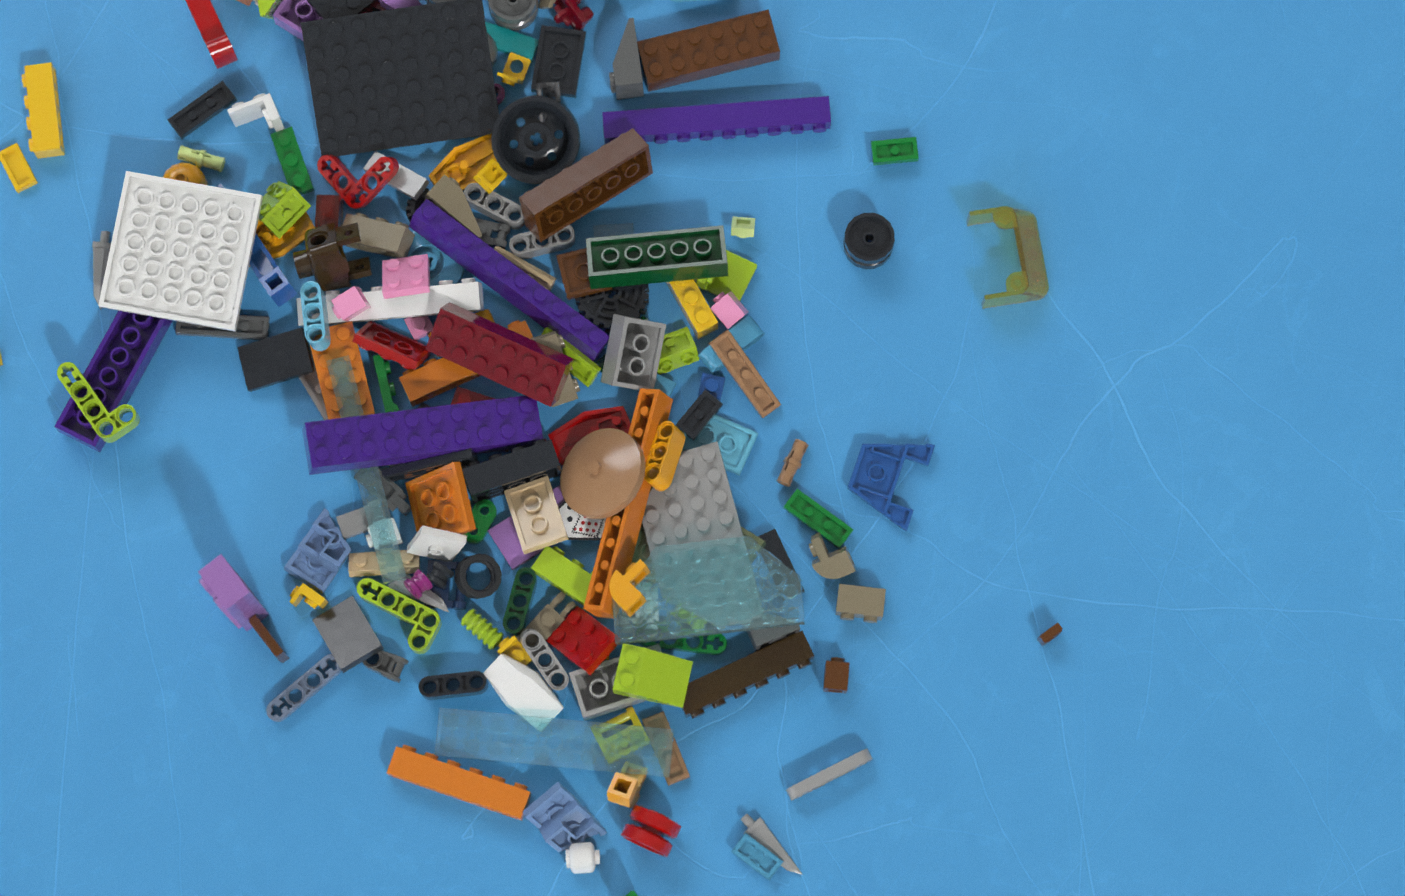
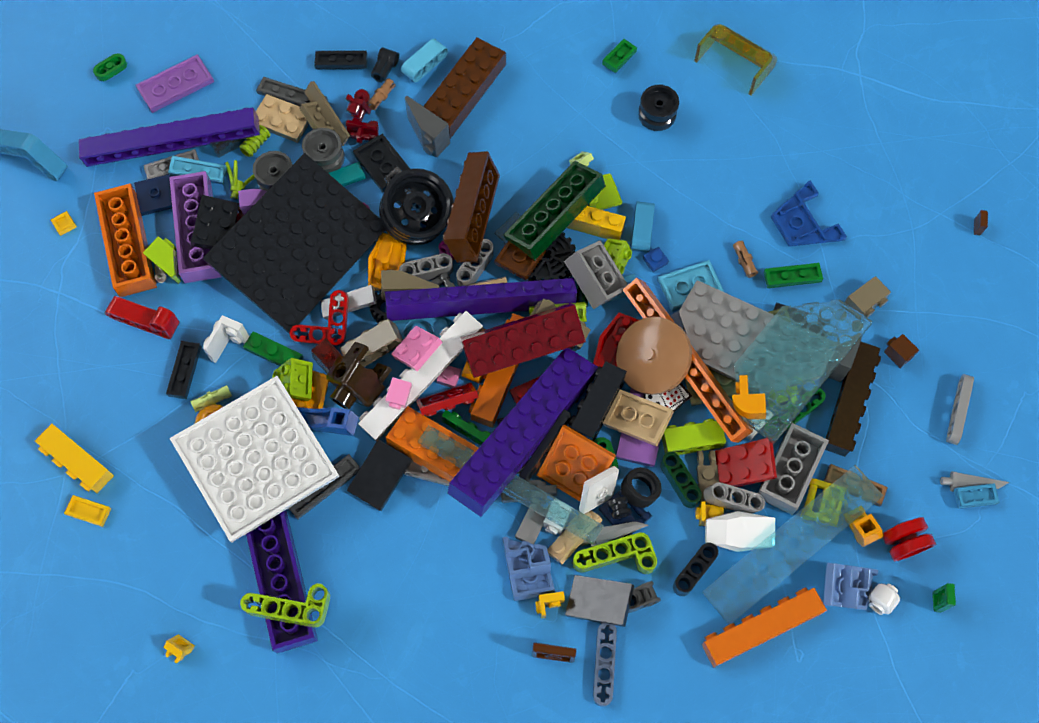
camera: 45 degrees left, 10 degrees down
(100, 258) = (202, 516): light grey bar -> none
(231, 593) = (510, 638): medium lavender brick -> none
(311, 306) = (389, 426): medium azure beam -> none
(418, 584) = (613, 525): magenta wheel -> none
(482, 629) = (676, 517): lime piece -> none
(490, 176) = (408, 250): yellow bracket -> none
(509, 76) = (362, 193): yellow bracket -> none
(652, 676) = (810, 444): lime slope -> none
(664, 455) = (672, 307): light orange beam -> none
(699, 415) = (668, 277): black plate -> none
(721, 120) = (508, 116): dark purple brick -> none
(728, 309) = (622, 206): bright pink brick -> none
(744, 373) = (668, 232): medium nougat tile -> none
(833, 564) = (830, 289): dark tan brick -> none

